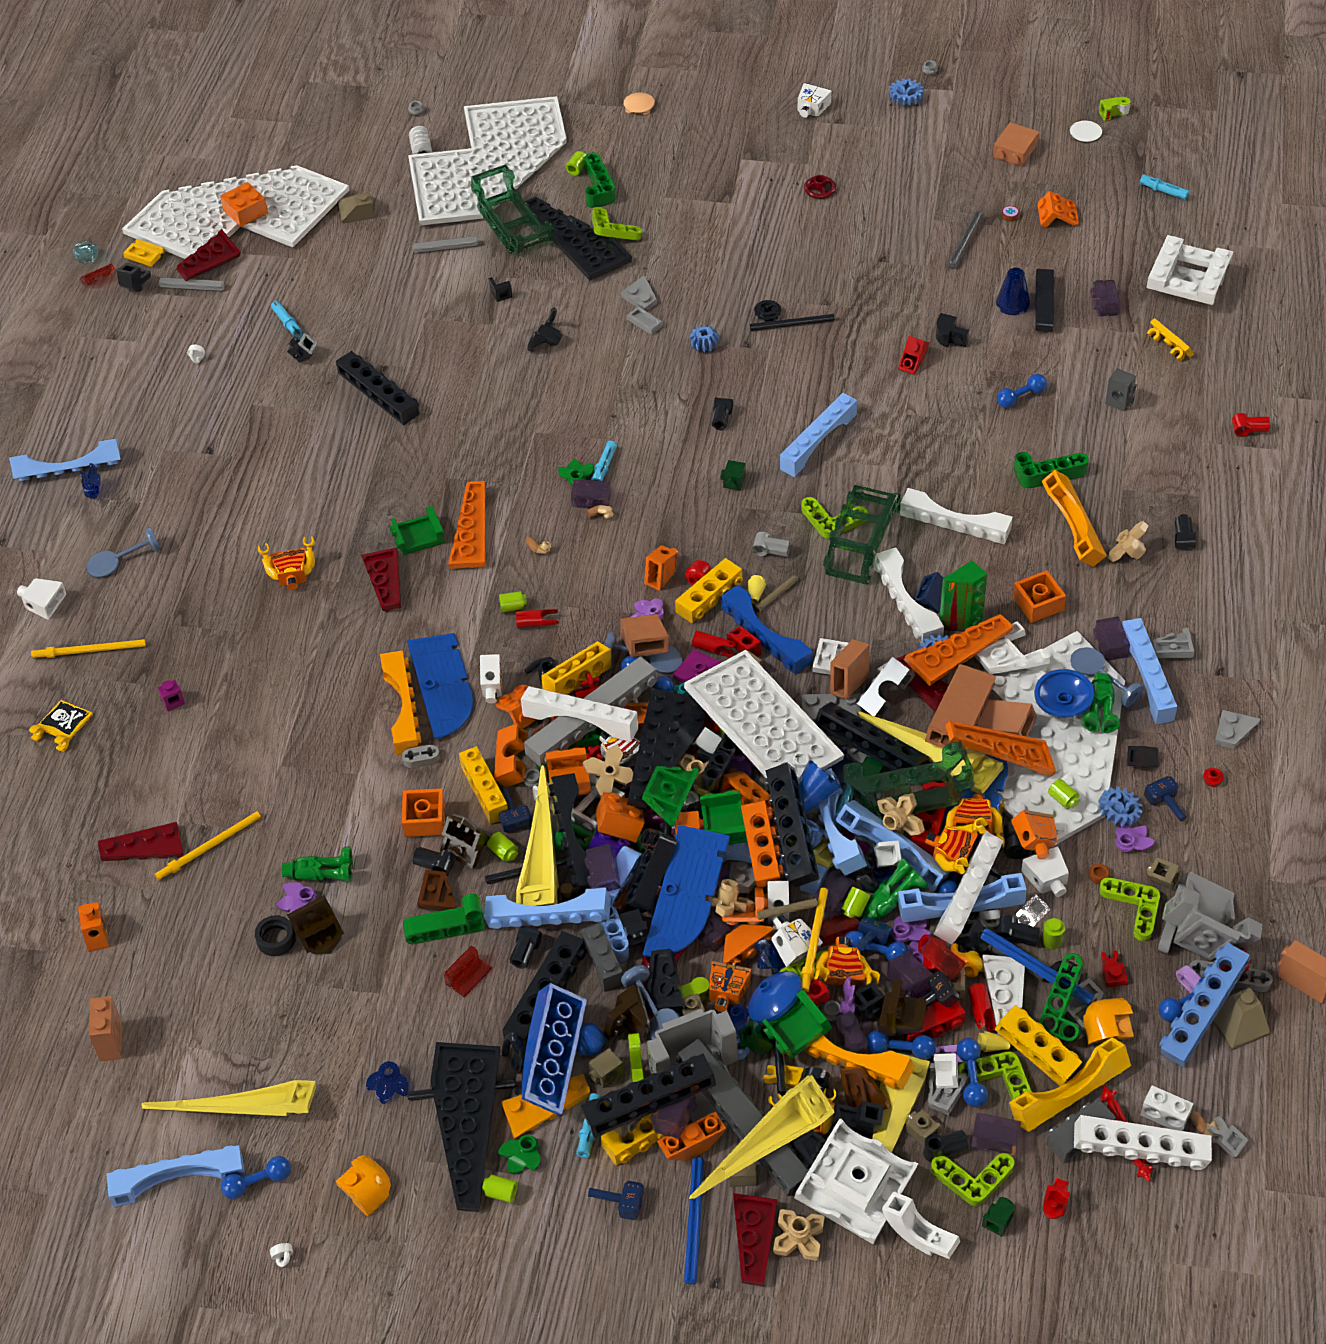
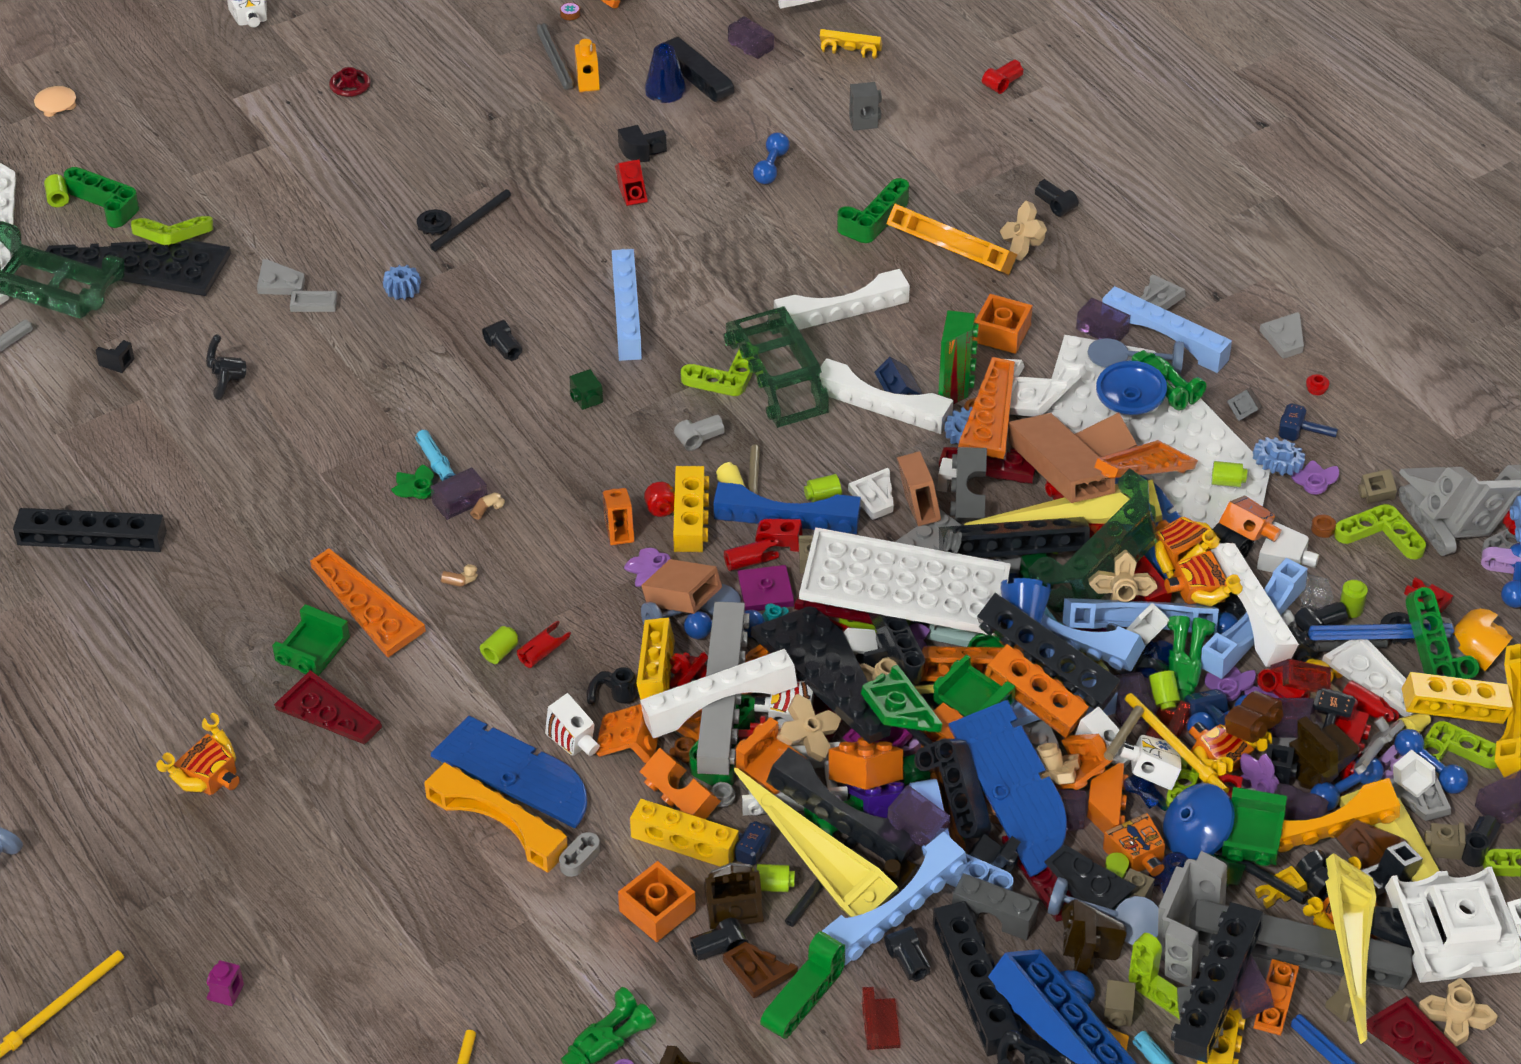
camera: 45 degrees left, 5 degrees down
(802, 631) = (822, 488): none -> lime brick
(819, 715) = (952, 541): none -> dark grey bush
(878, 957) = (1254, 716): none -> reddish brown brick
(941, 1035) = (1377, 742): none -> light grey piece
(971, 258) = (586, 59): none -> light orange torso

